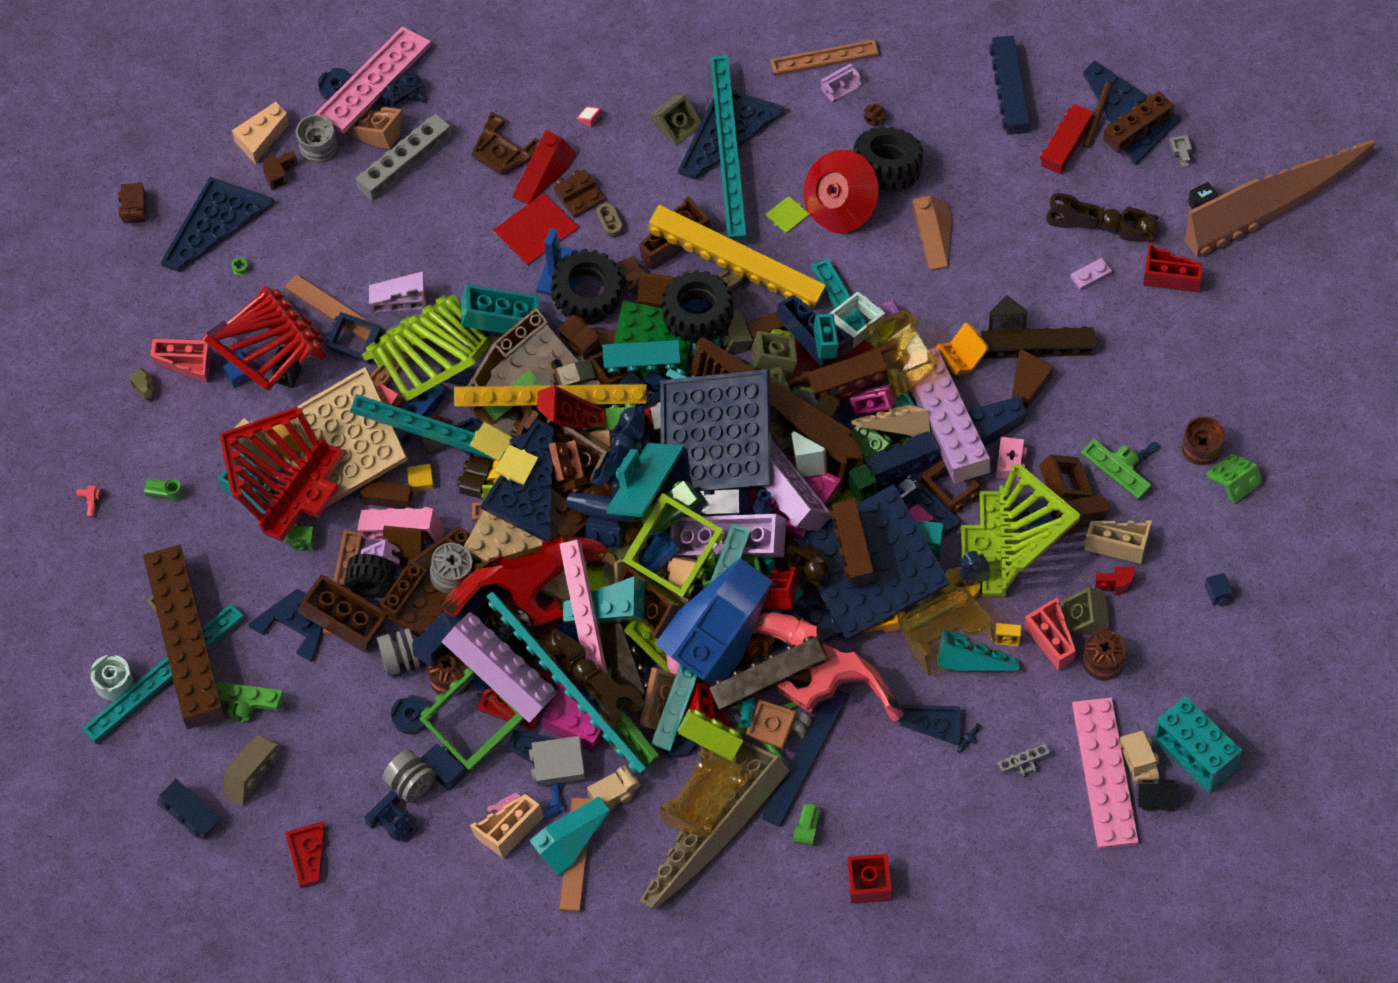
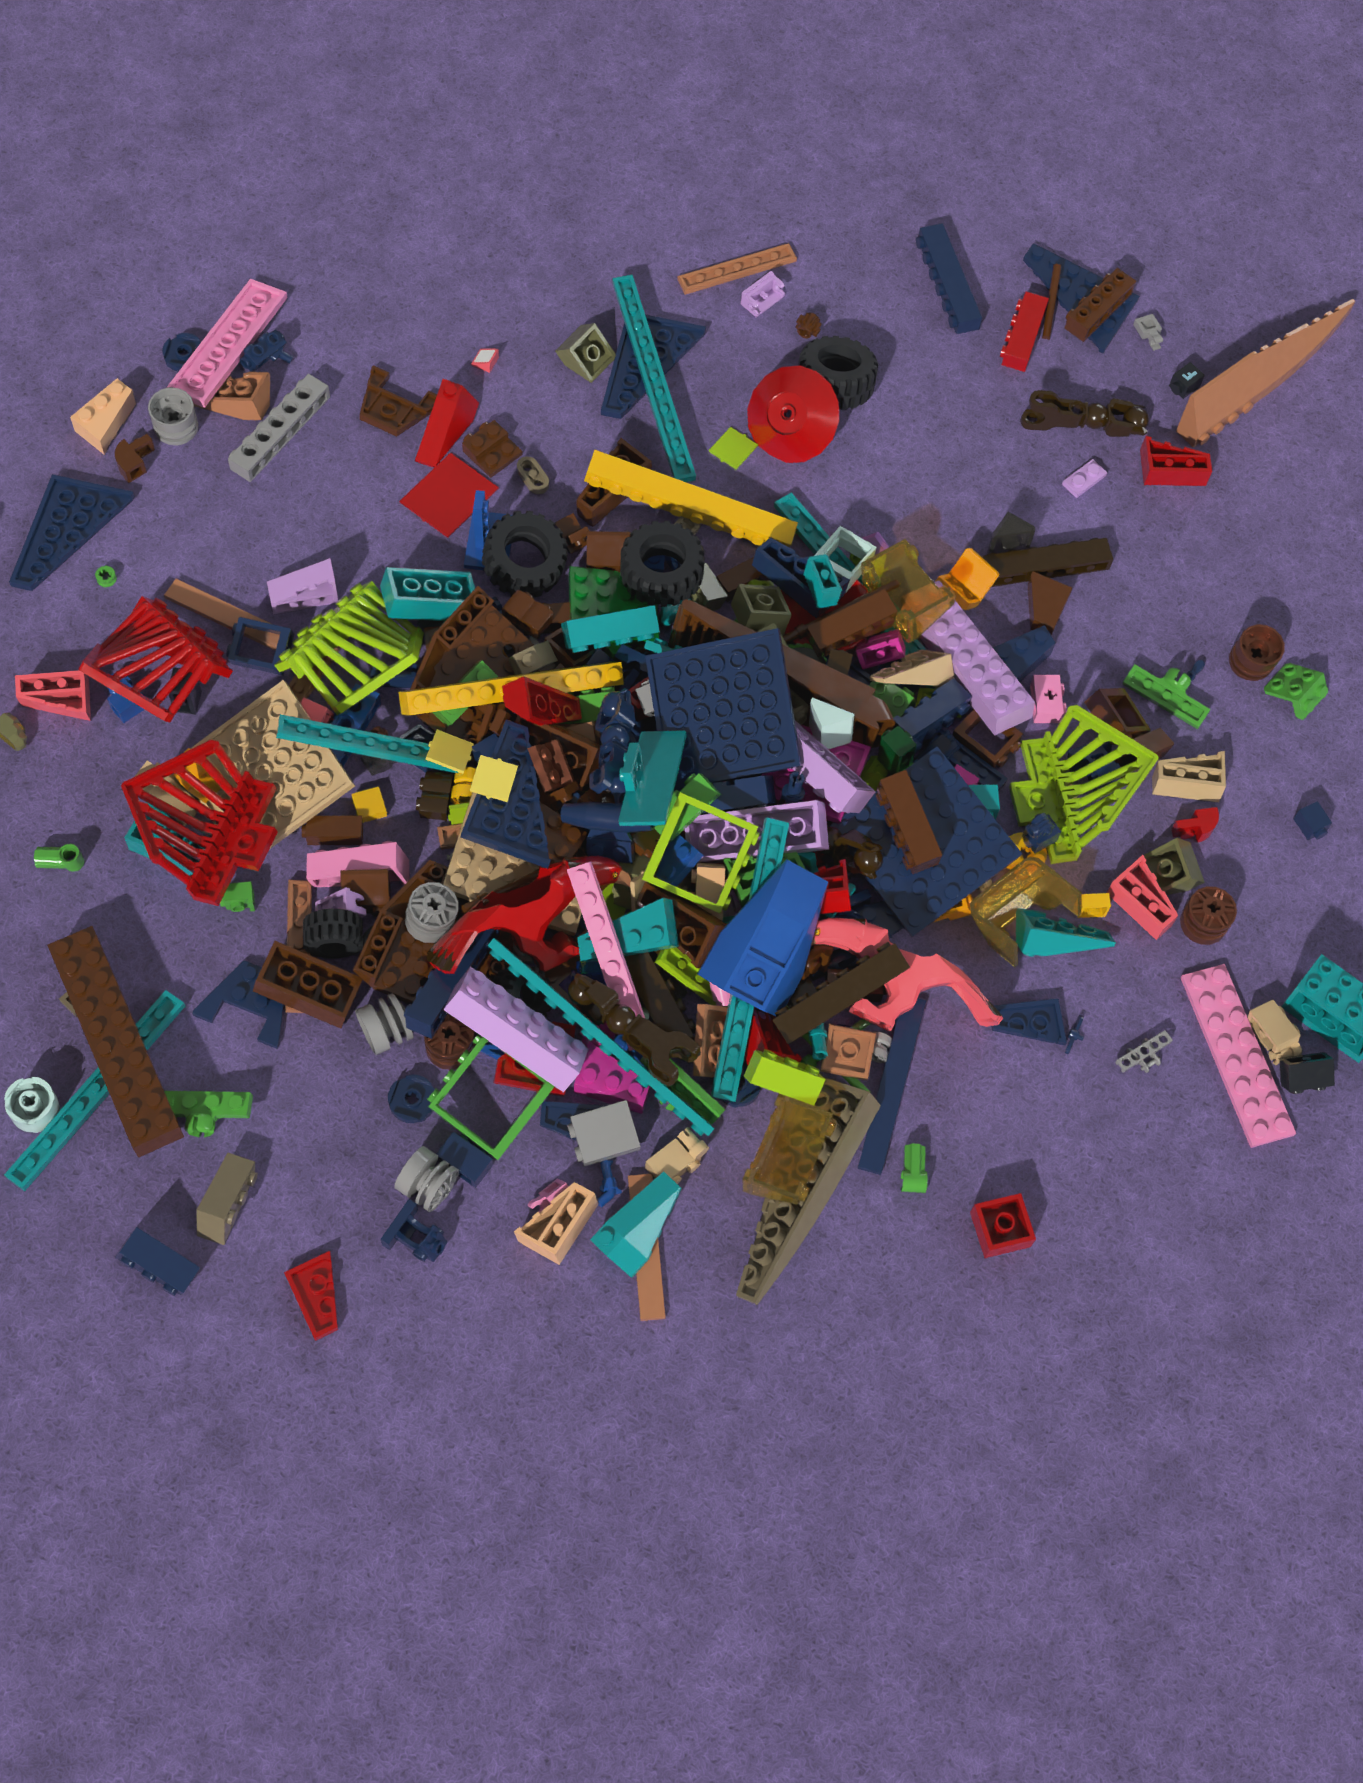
camera: 20 degrees left, 5 degrees up
(934, 228) = (901, 447): nougat wedge -> none

